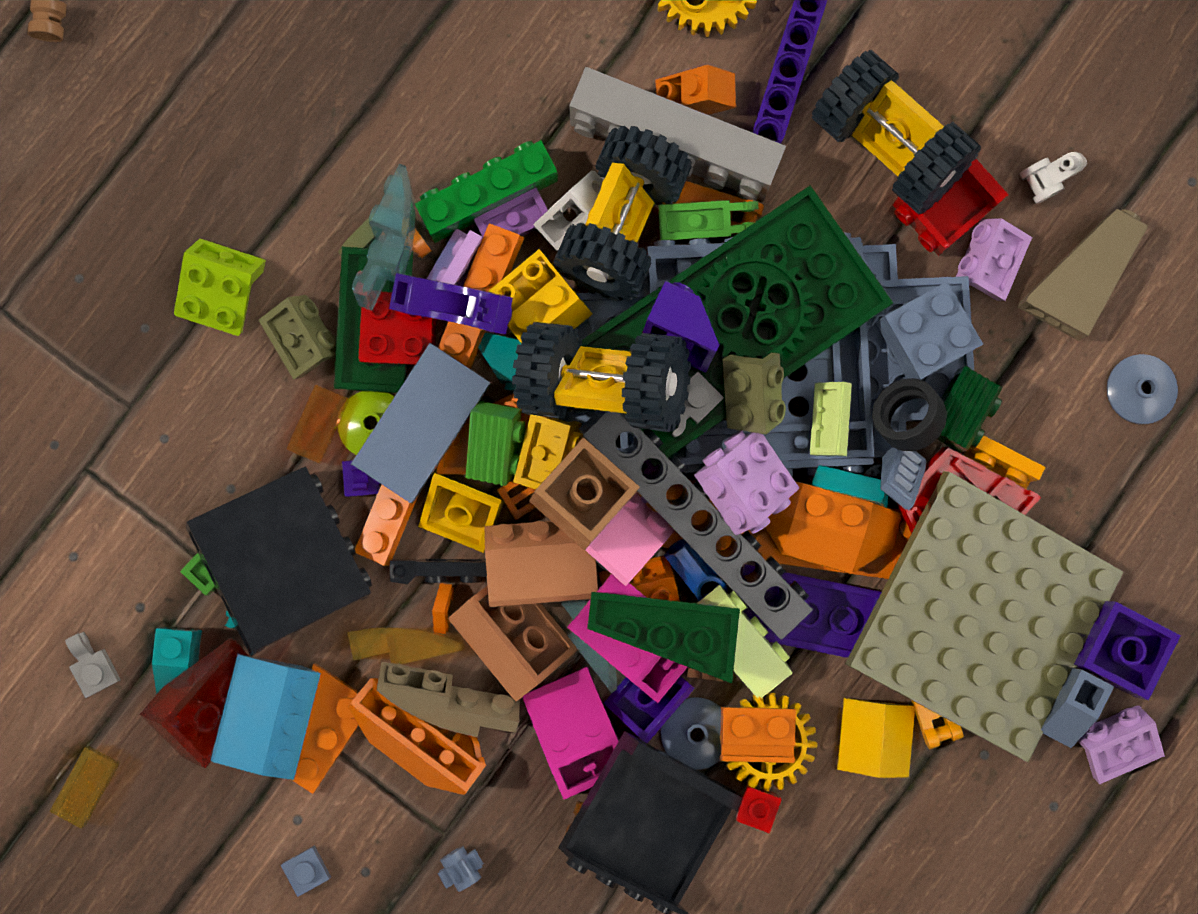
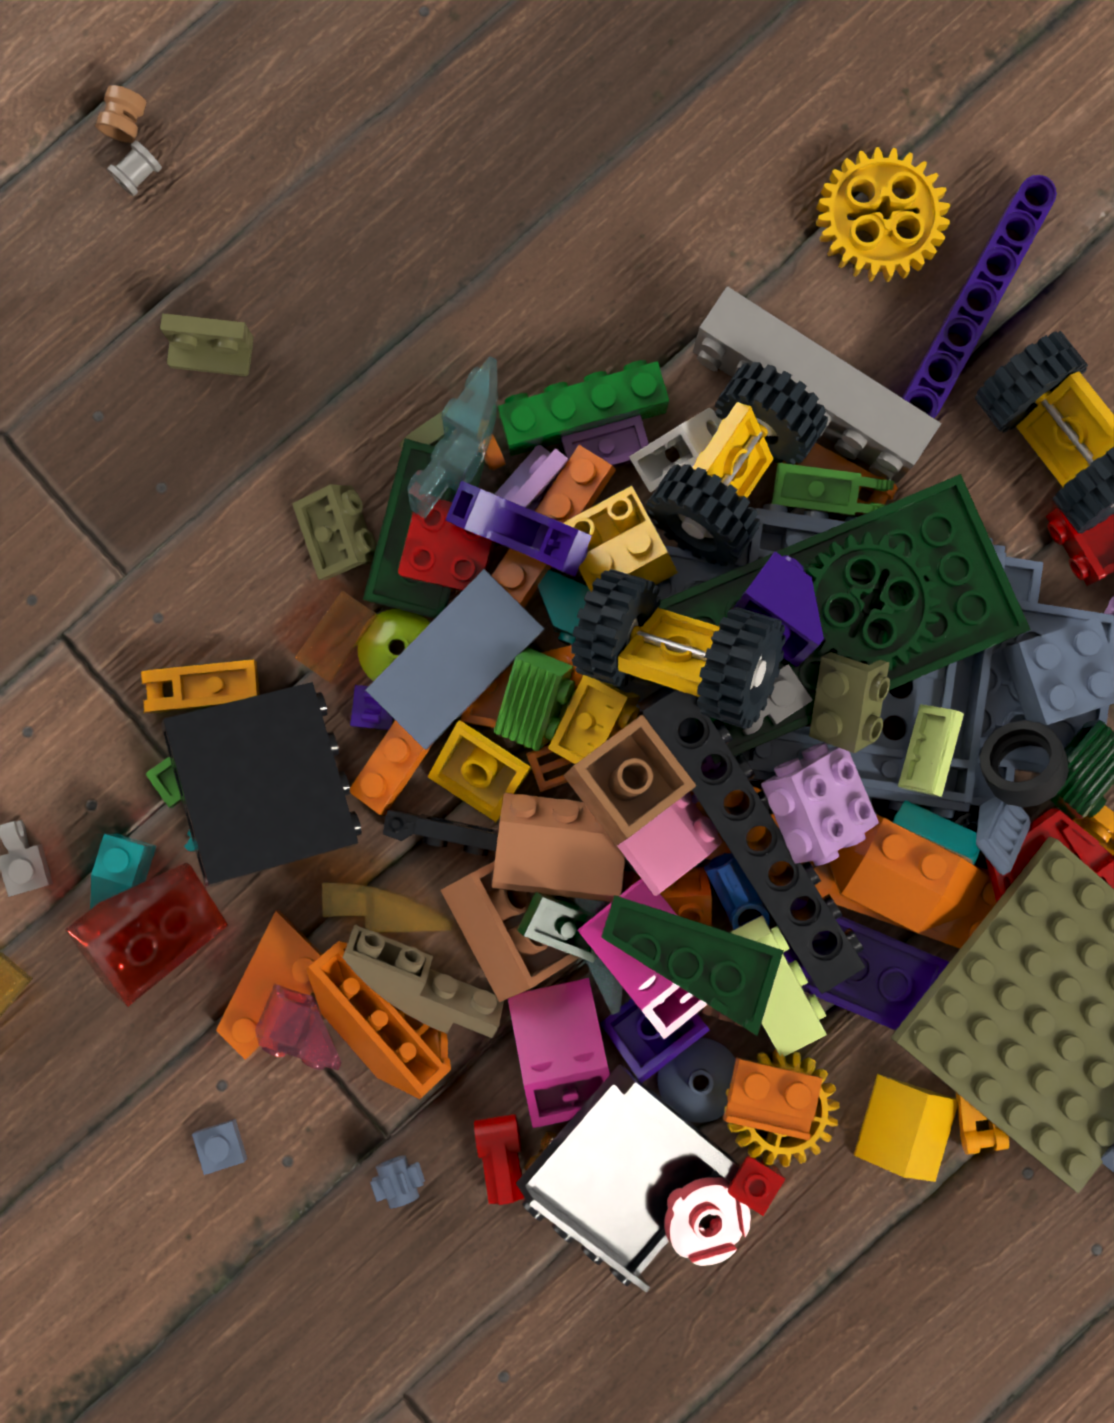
camera: 15 degrees right, 0 degrees up
(67, 63) = (134, 168): none -> light grey bush
(160, 200) = (208, 344): none -> olive bracket
(211, 488) = (200, 685): none -> light orange plate
(216, 286) = (252, 455): lime bracket -> none
(265, 716) = (209, 961): dark azure slope -> none
(350, 757) = (296, 1028): none -> clear pink slope
(441, 607) = (435, 875): orange tile -> none
(539, 822) = (499, 1148): none -> red piece
(549, 626) = (557, 925): none -> slope
(701, 89) = (853, 337): orange slope -> none
(706, 840) = (690, 1205): none -> plate

